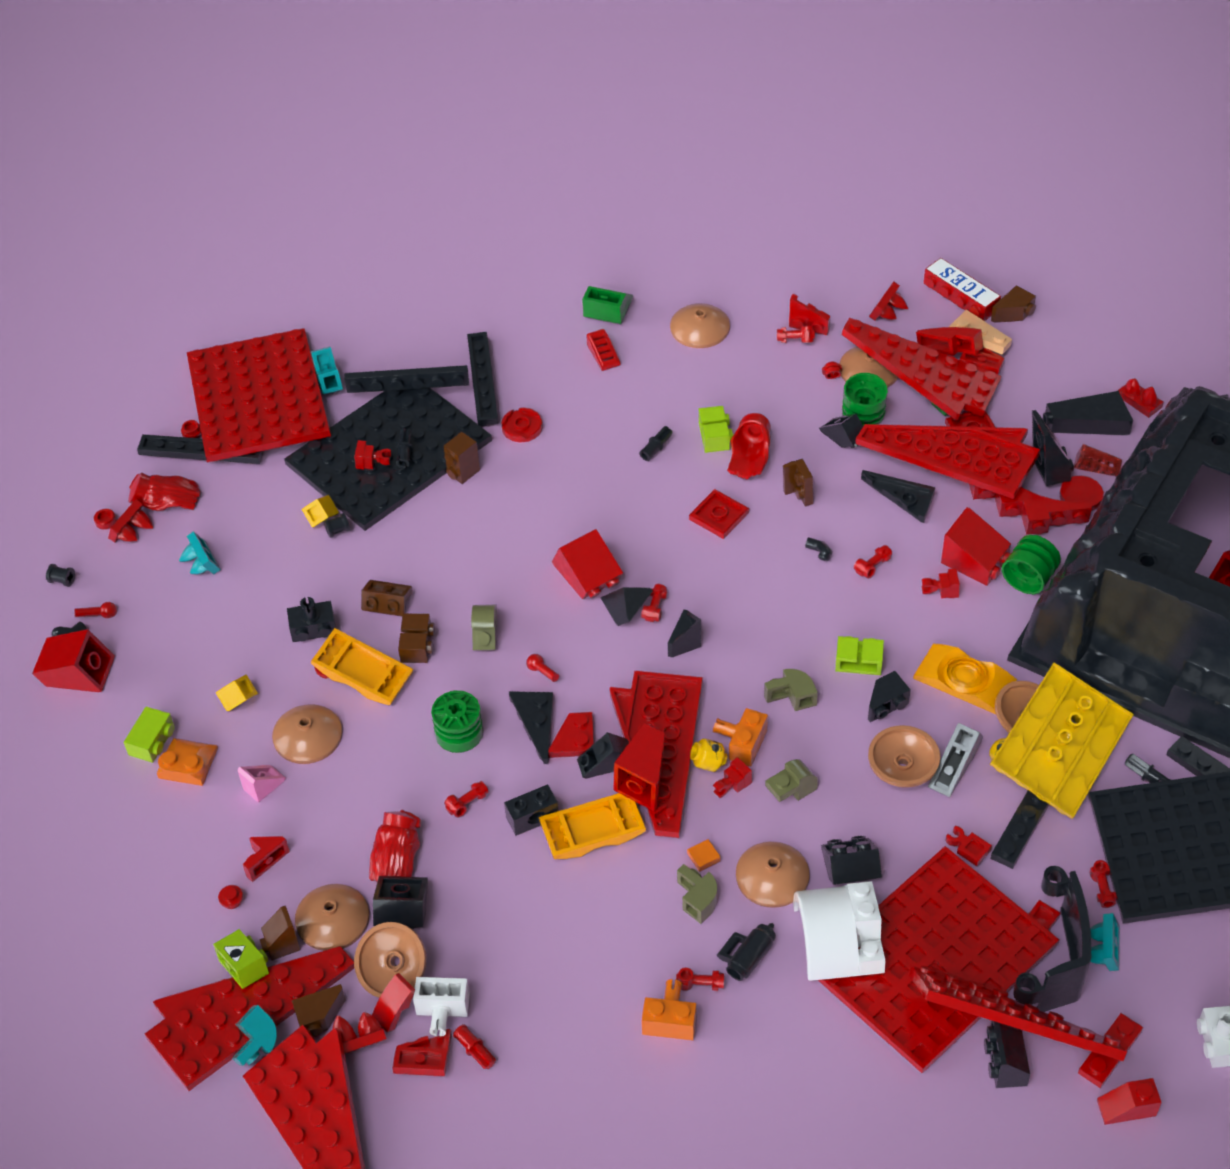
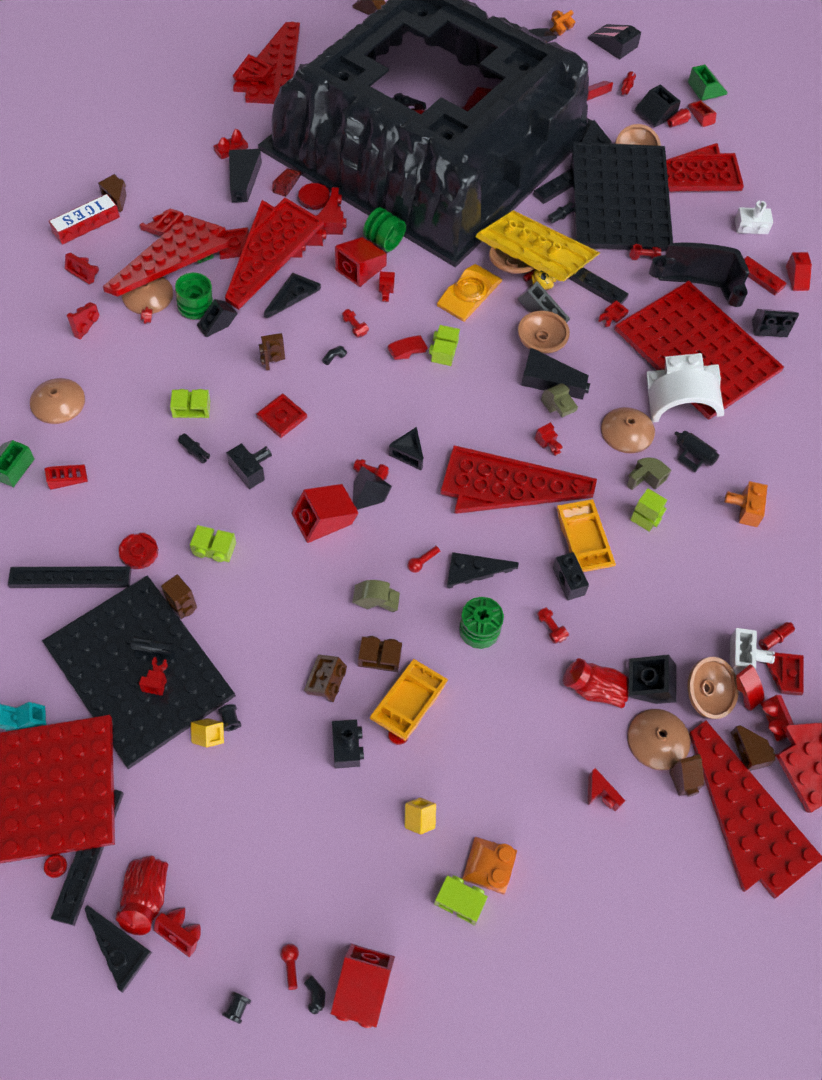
camera: 90 degrees left, 10 degrees up
(104, 519) = (160, 962): red tile -> none
(116, 487) = (121, 951): none -> black wing
(200, 549) = (230, 856): teal tile -> none
(230, 896) = (640, 822): red plate -> none
(241, 958) = (710, 808): lime brick -> none
(260, 780) = (521, 793): bright pink slope -> none
(261, 1033) = (784, 794): teal brick -> none
(308, 742) = (465, 767): nougat dish -> none
(406, 379) = (60, 642): black plate -> none
(533, 479) = (216, 547): none -> lime piece
(574, 736) = (495, 541): red wing -> none
(601, 755) = (522, 521): black slope -> none
(633, 885) = (649, 510): none -> lime piece
(637, 489) = (247, 464): none -> black brick
(640, 767) = (551, 484): red slope -> none
(689, 979) = (719, 490): red bar -> none
(703, 855) = (612, 468): orange tile -> none
(708, 755) = (529, 449): yellow head -> none
(745, 735) = (512, 424): orange brick -> none
(750, 446) = (221, 380): red hair -> none
(796, 686) = (469, 388): olive brick -> none
(806, 334) = (100, 326): red bar -> none
(838, 773) = (546, 372): none -> black slope
(848, 617) = (405, 347): none -> red slope
(851, 860) = (623, 379): black slope -> none
(888, 695) = (484, 335): black slope -> none
(951, 339) = (144, 232): red slope -> none
(992, 338) = (136, 218): light nougat wing -> none
(995, 1005) = (759, 313): red wing -> none
(1044, 914) = (665, 287): red tile -> none
(1053, 459) = (282, 188): black slope -> none

